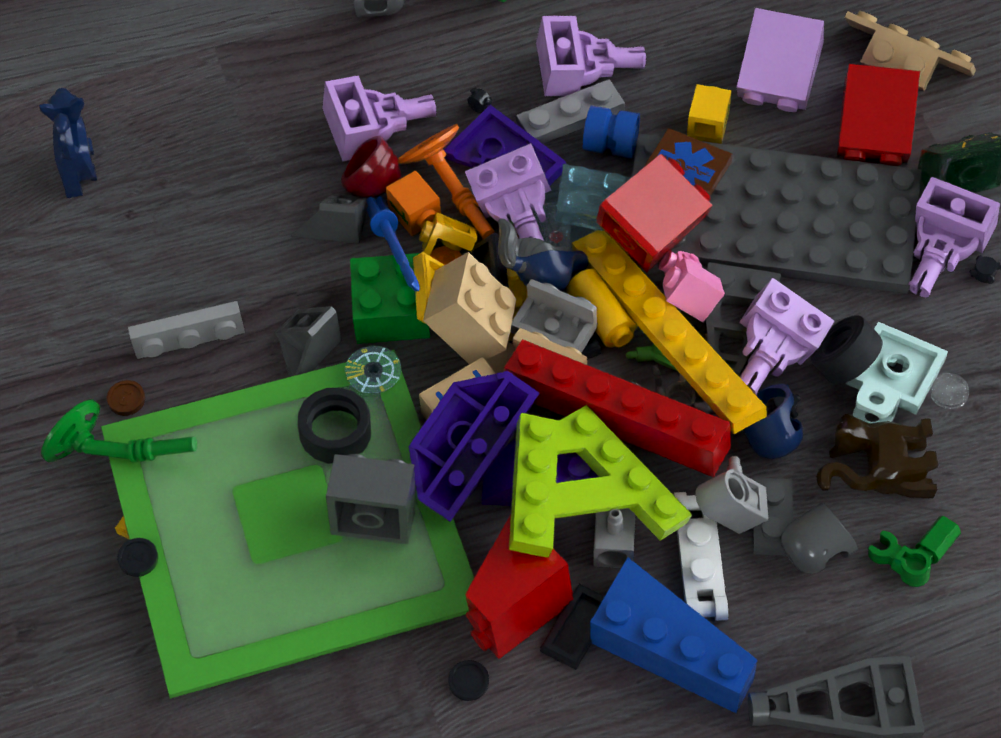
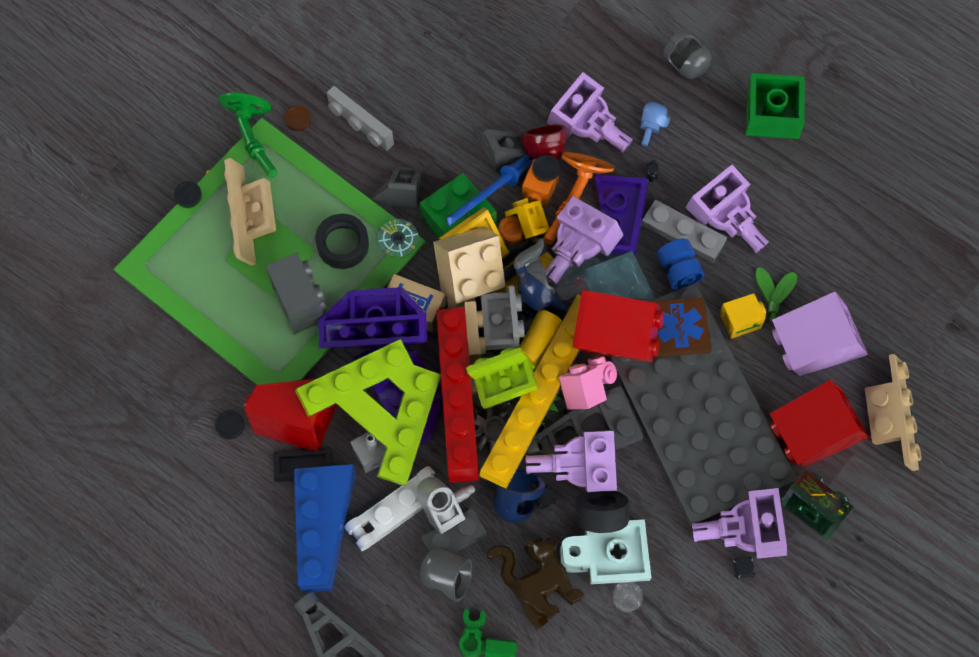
camera: 55 degrees right, 10 degrees up
(221, 491) = (250, 210): none -> tan bracket
(408, 181) = (546, 168): none -> black piece
(420, 66) = (653, 118): none -> medium blue piece
(636, 344) = (503, 377): none -> lime bracket
(702, 74) = (773, 295): none -> bright green piece

